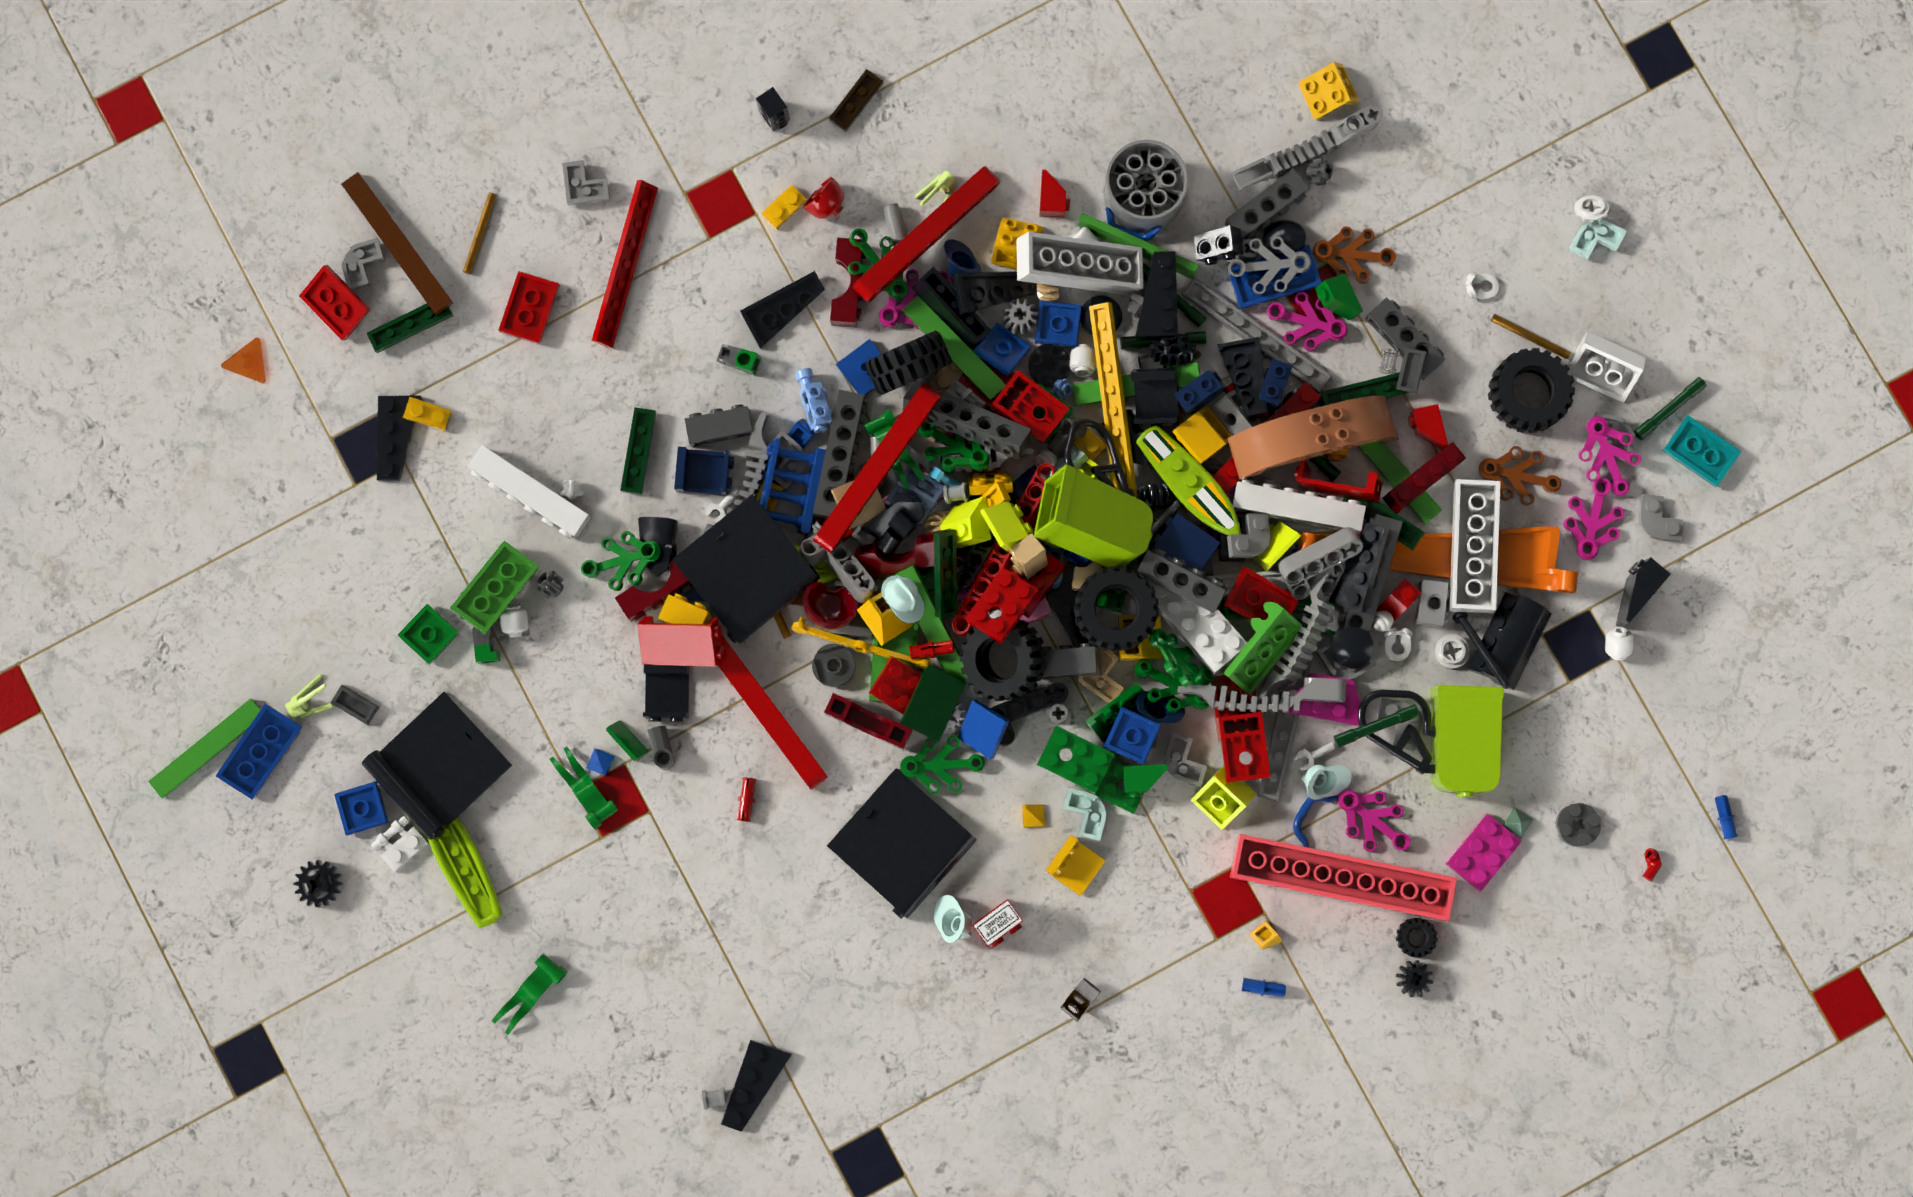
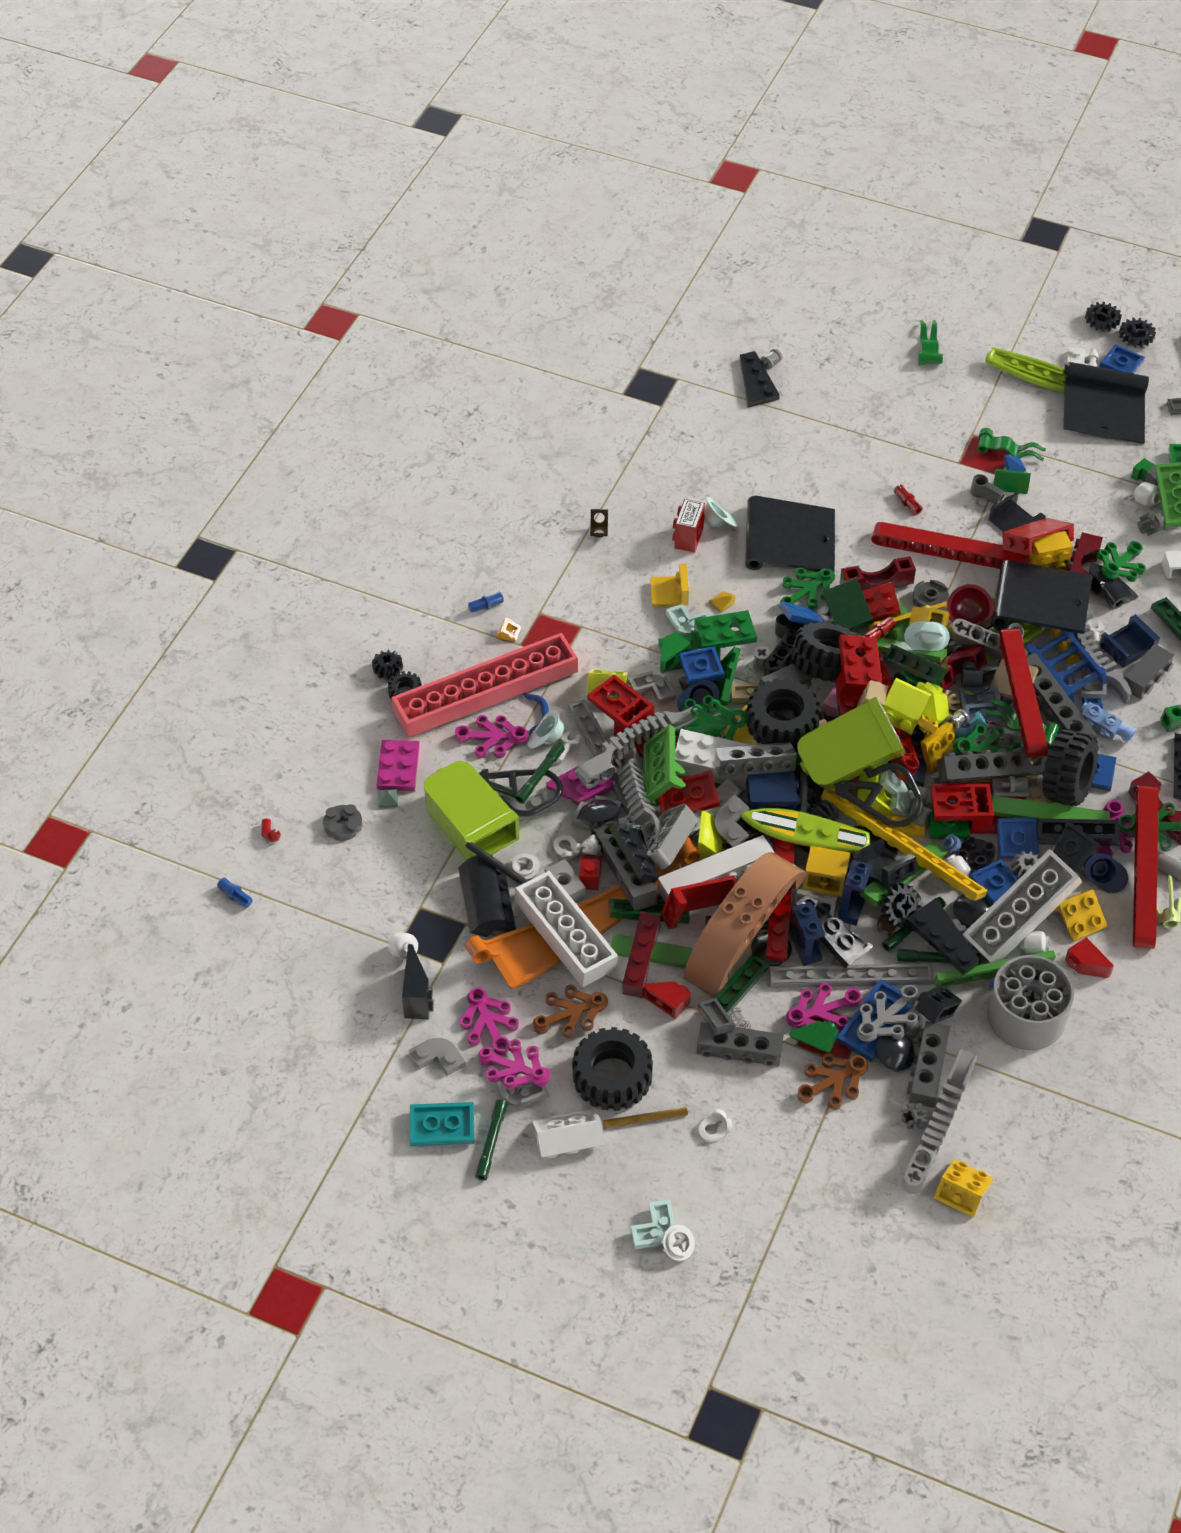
camera: 140 degrees right, 30 degrees down
(309, 841) = (1137, 332): none -> black gear

